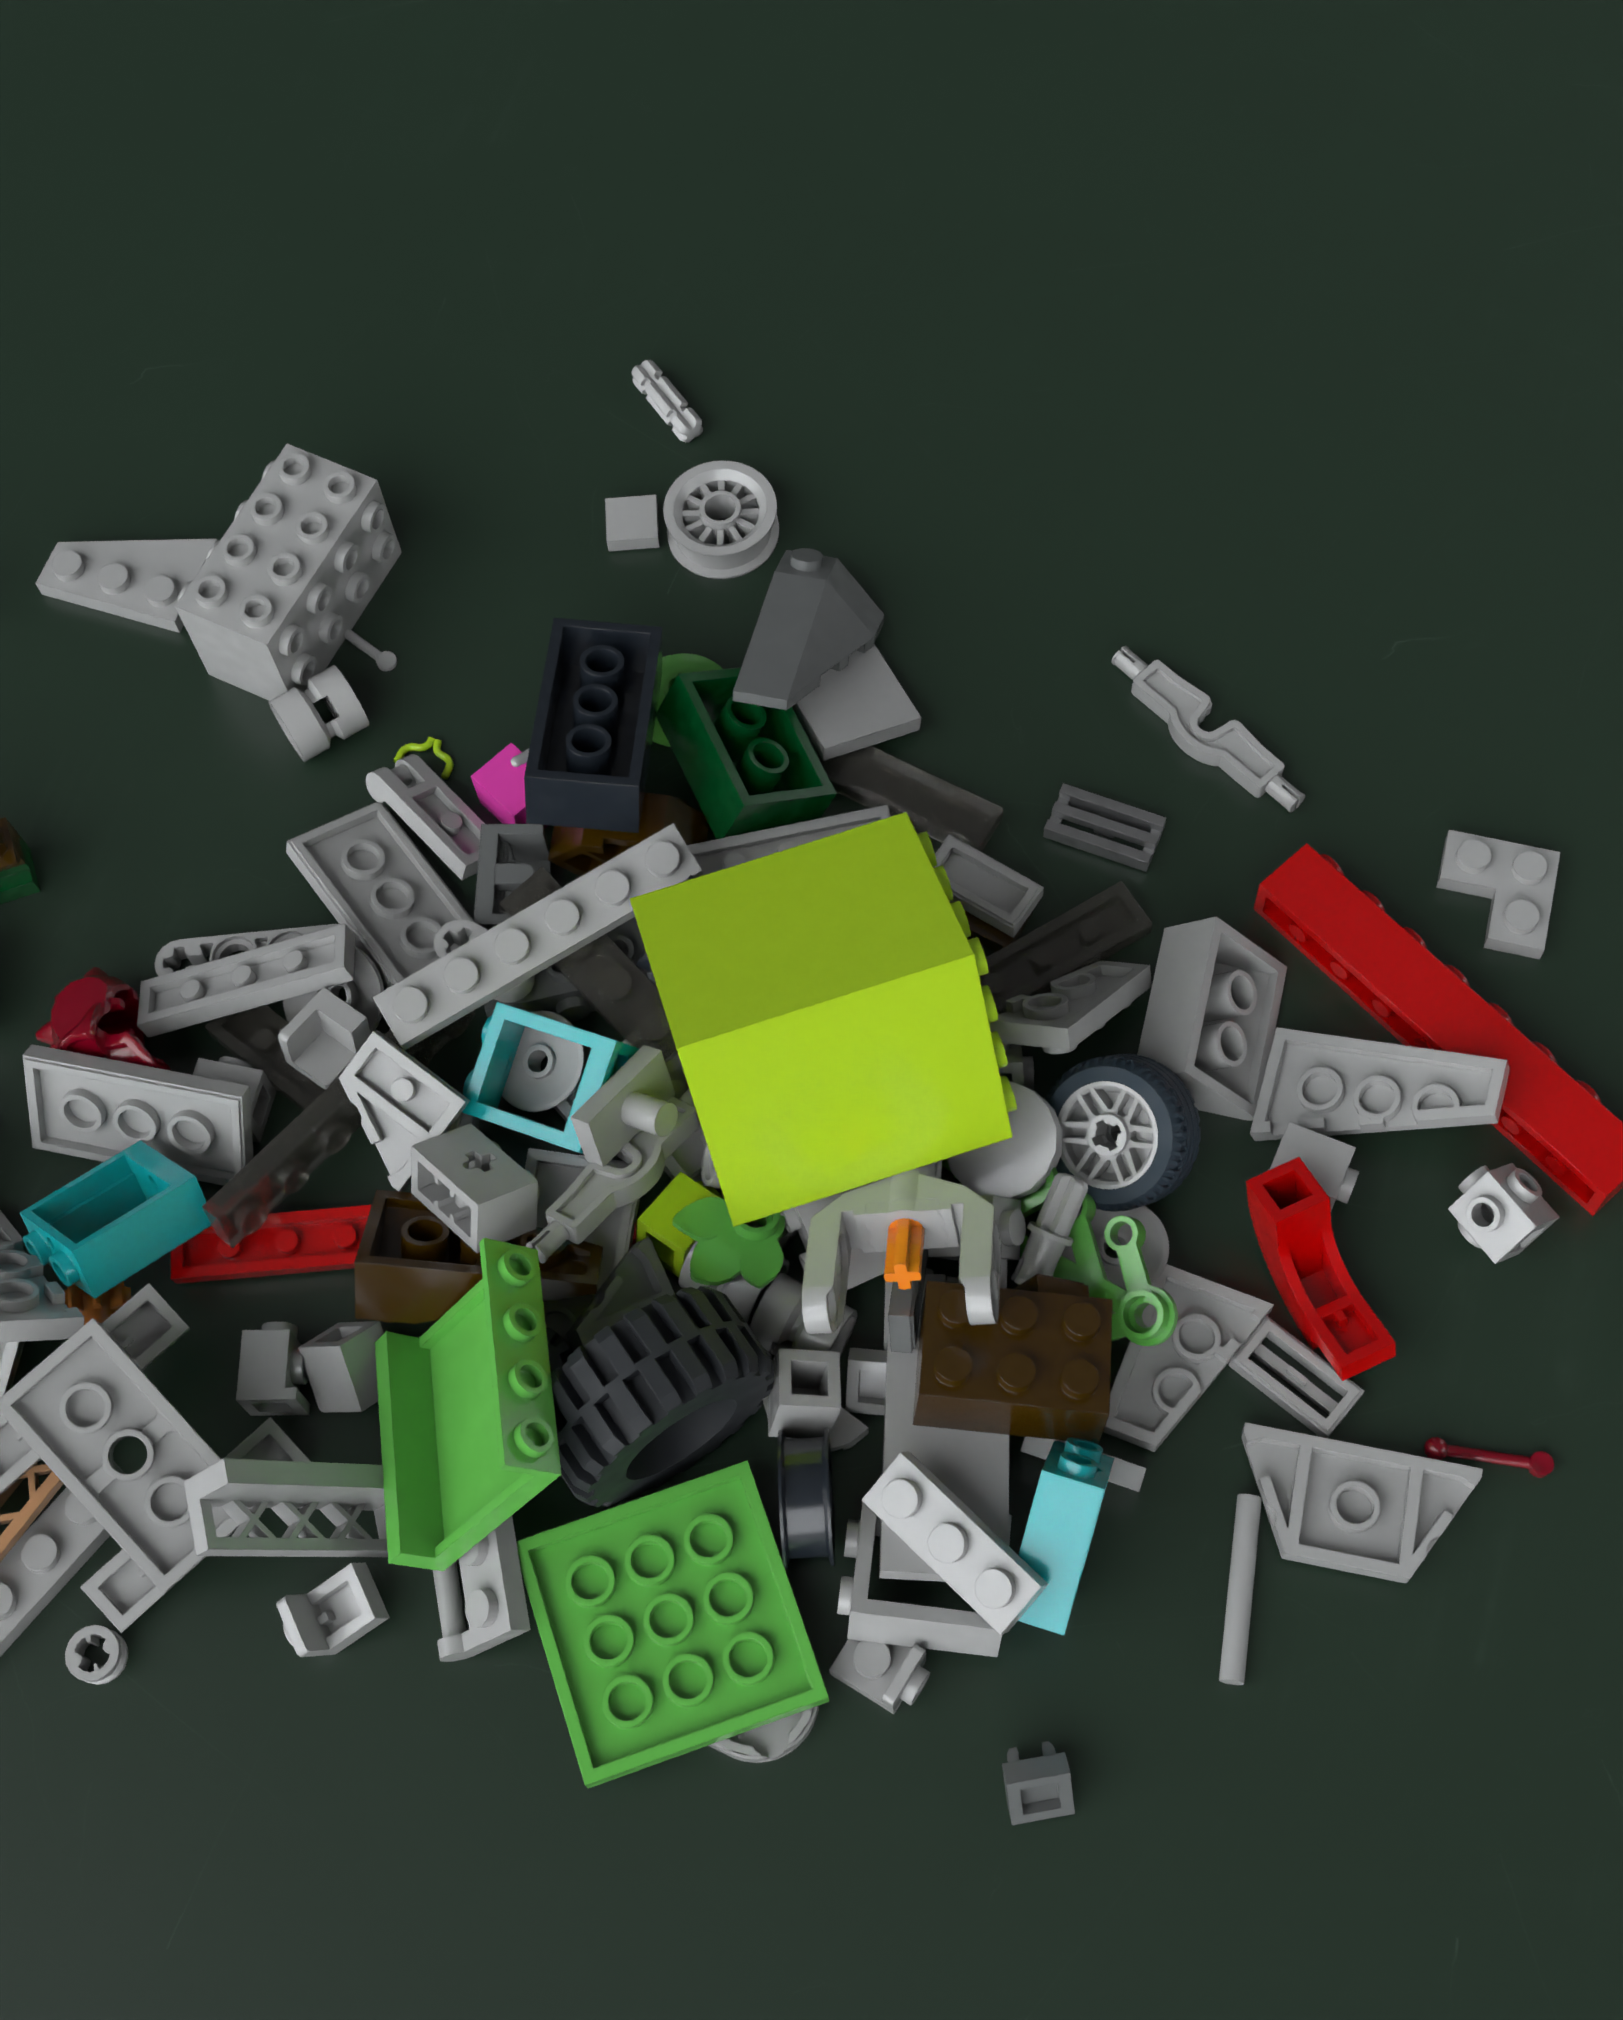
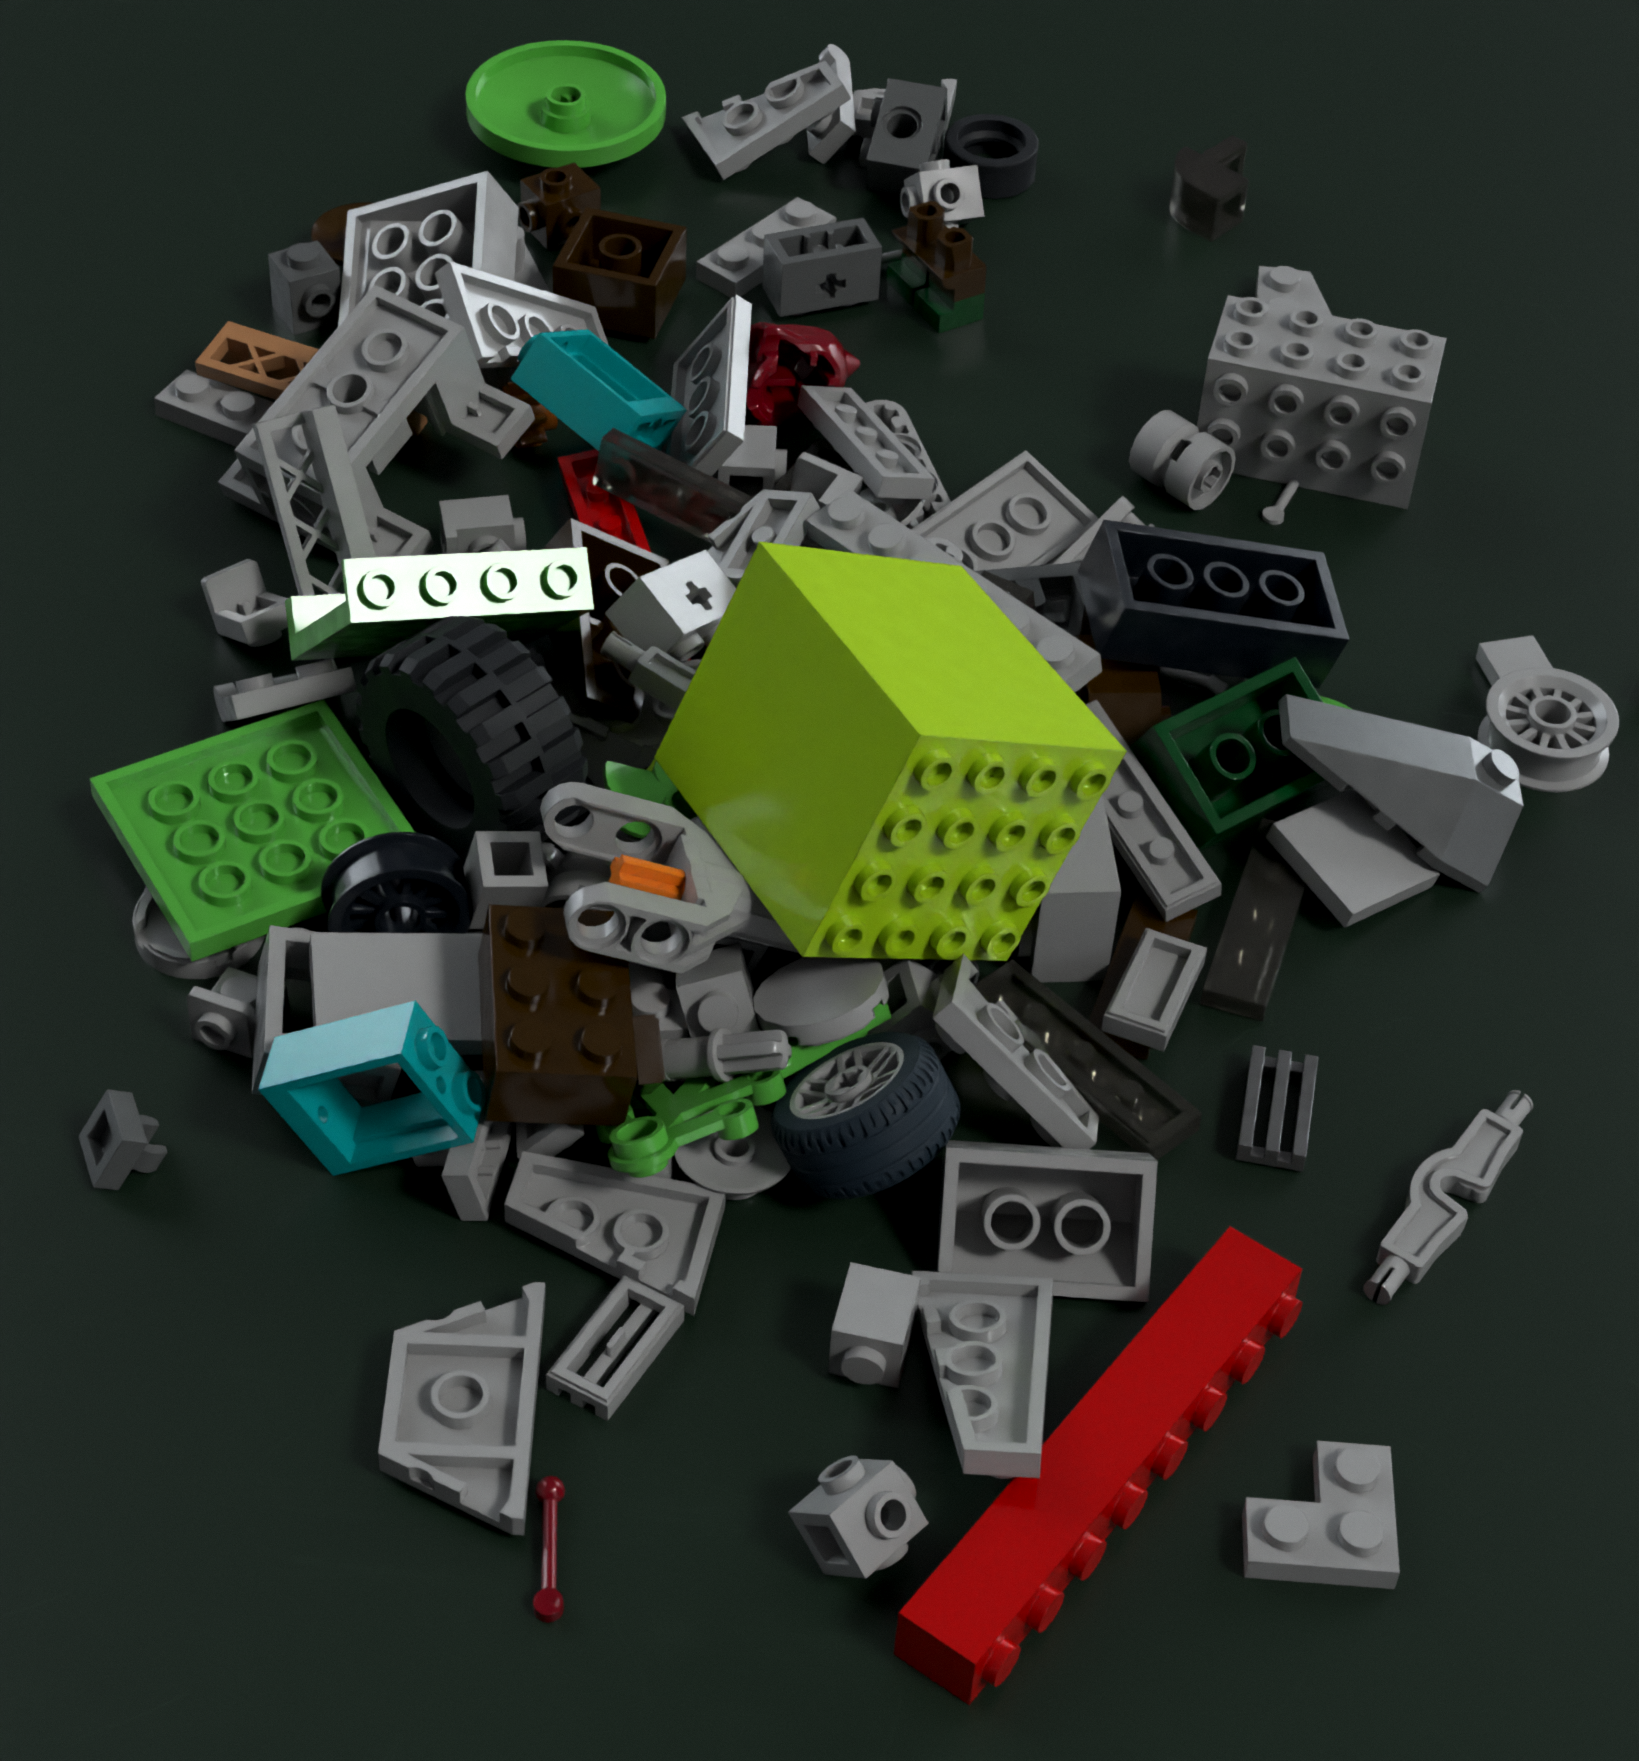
camera: 70 degrees right, 20 degrees down
(113, 1645) = (198, 479): light grey bush -> none
(954, 1542) = (340, 972): plate -> none
(1240, 1589) = (346, 1311): light grey bar -> none
(1301, 1253) = (750, 1327): red arch -> none

